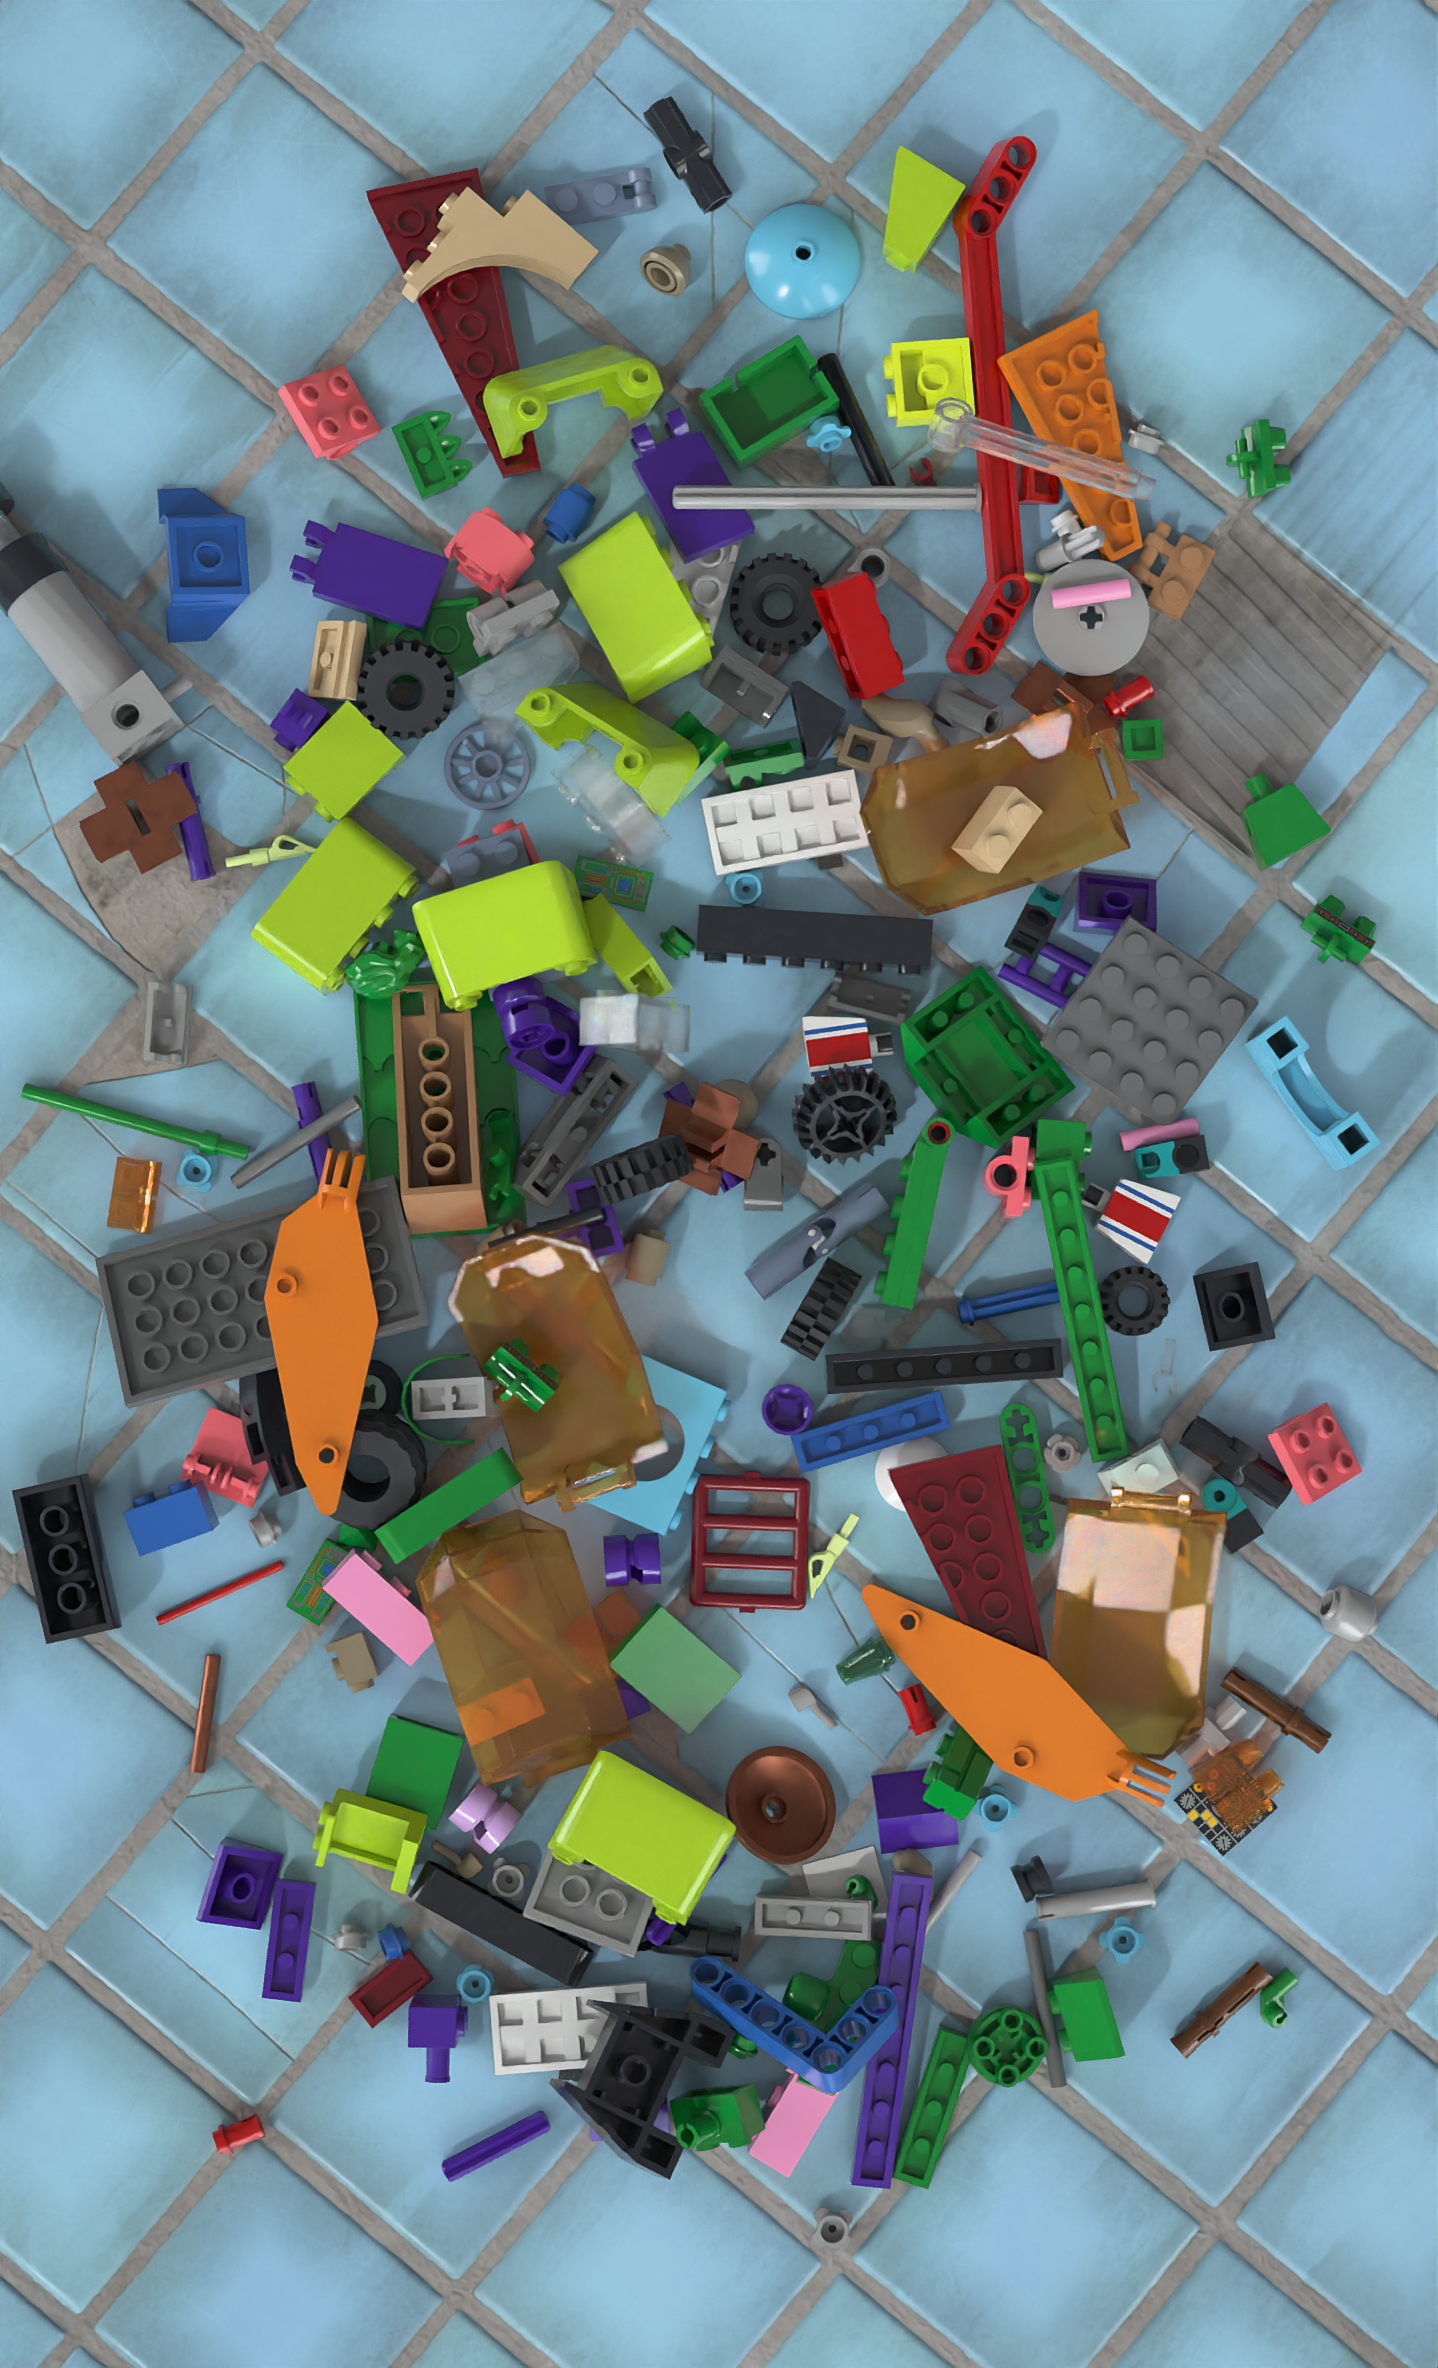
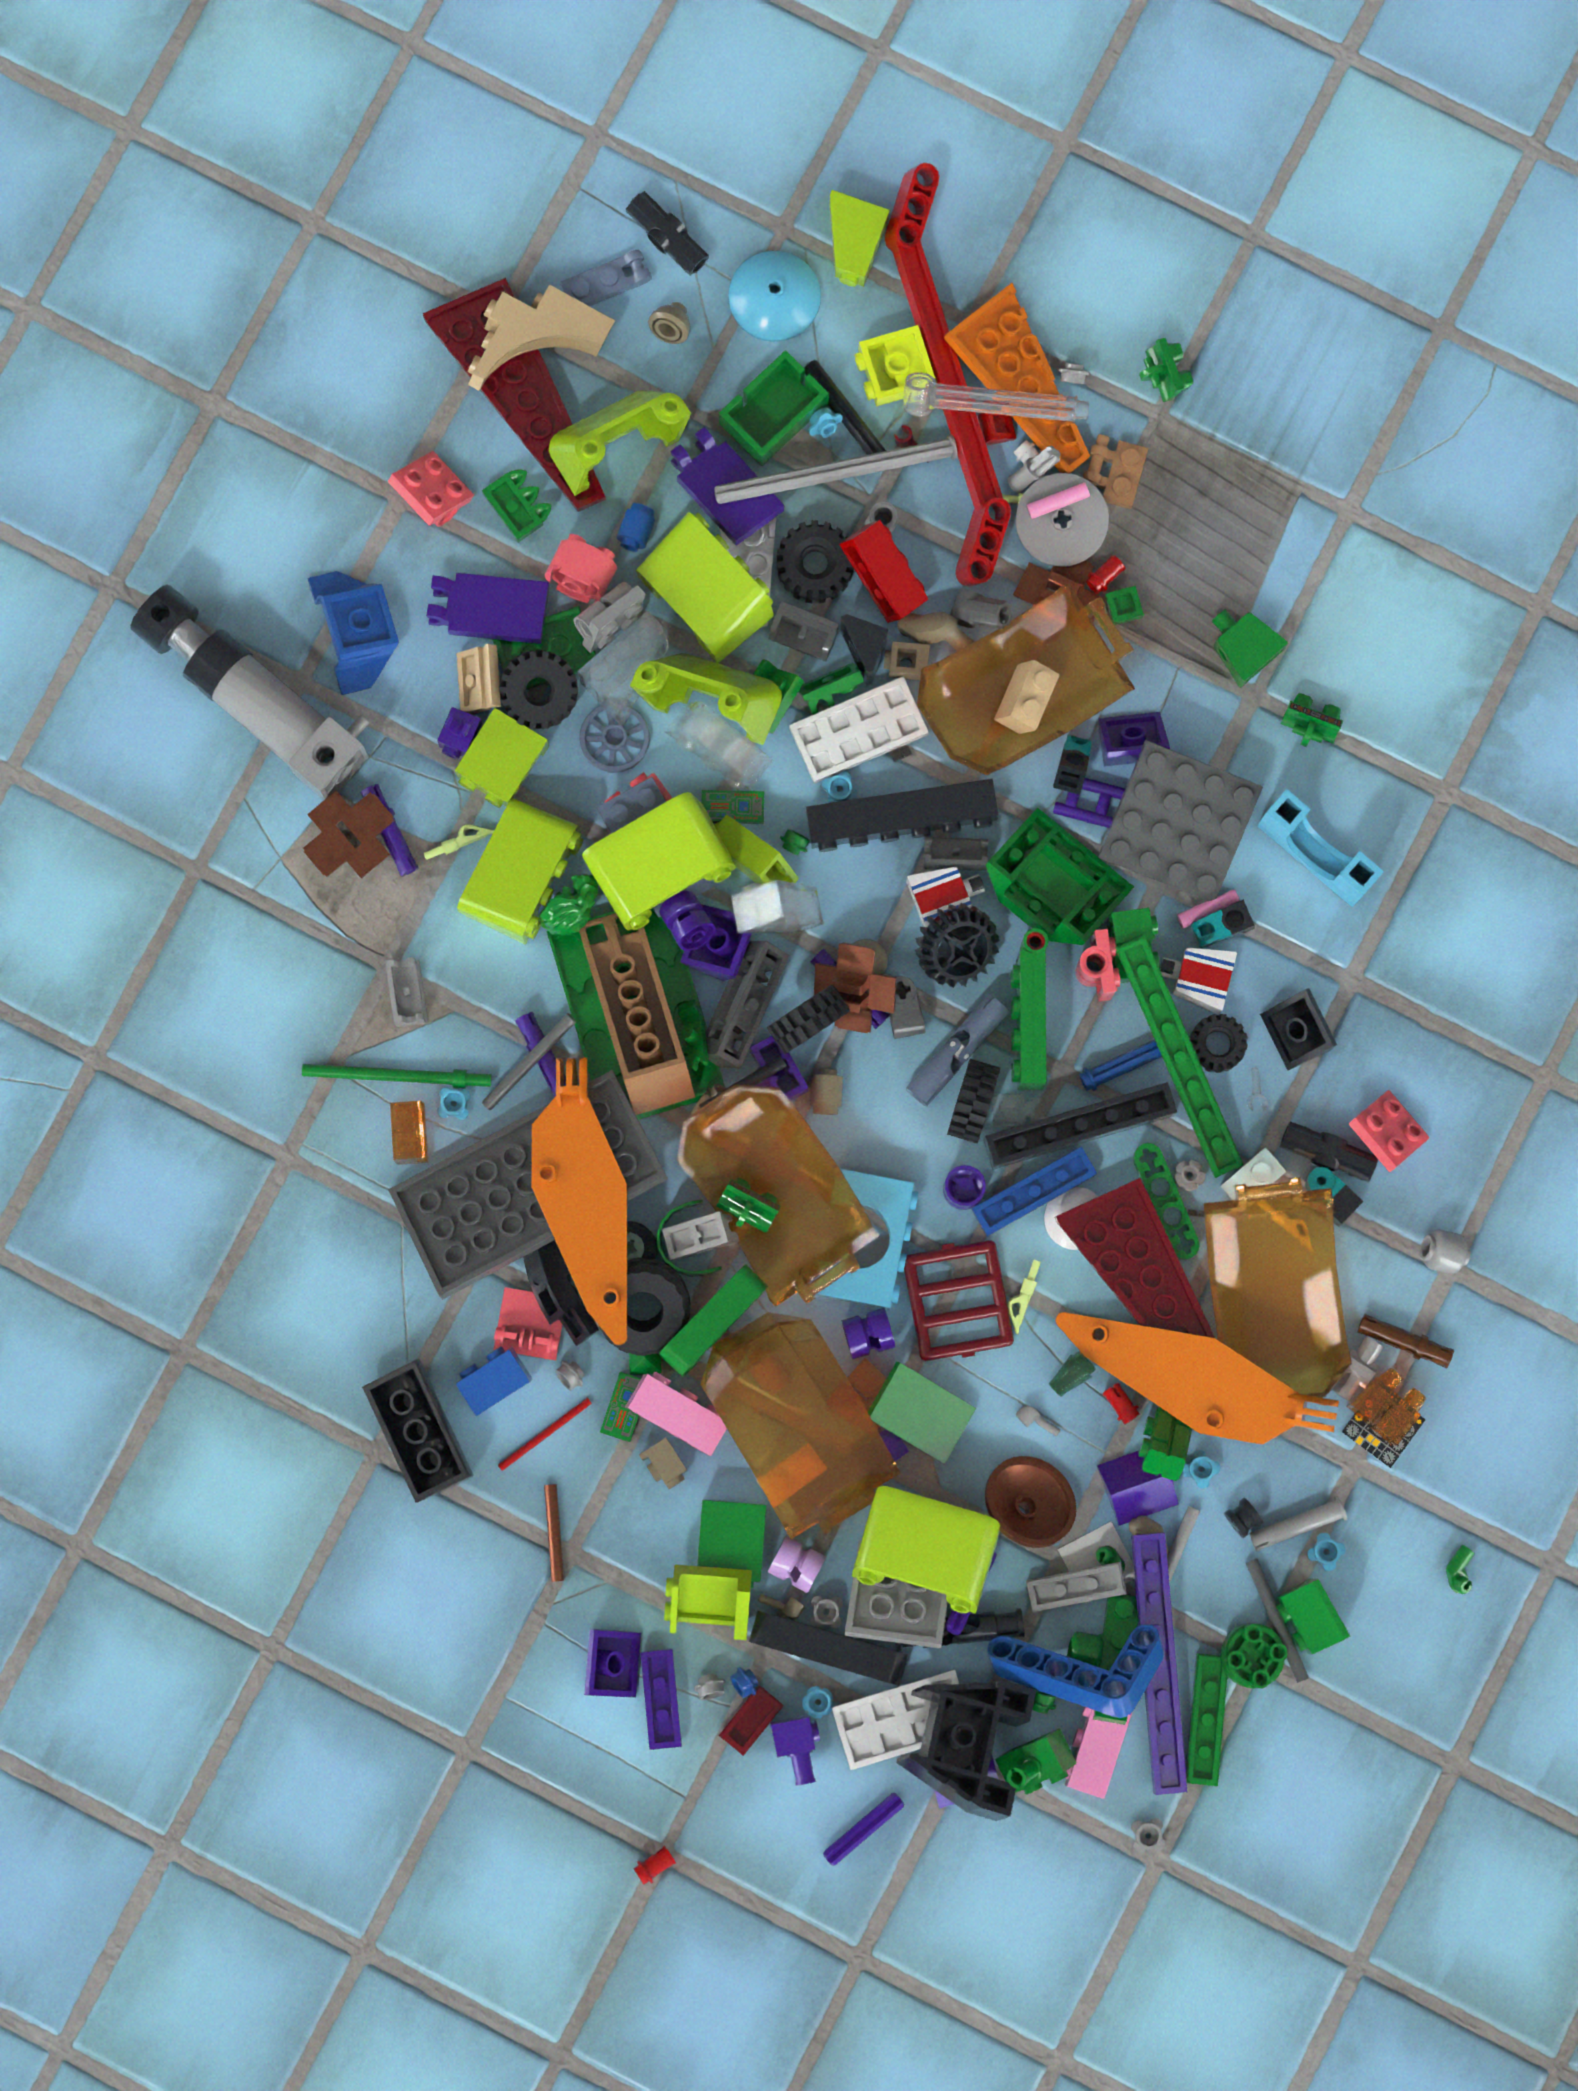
camera: 10 degrees left, 5 degrees down
(1221, 2009) = (1410, 1600): reddish brown pin -> none

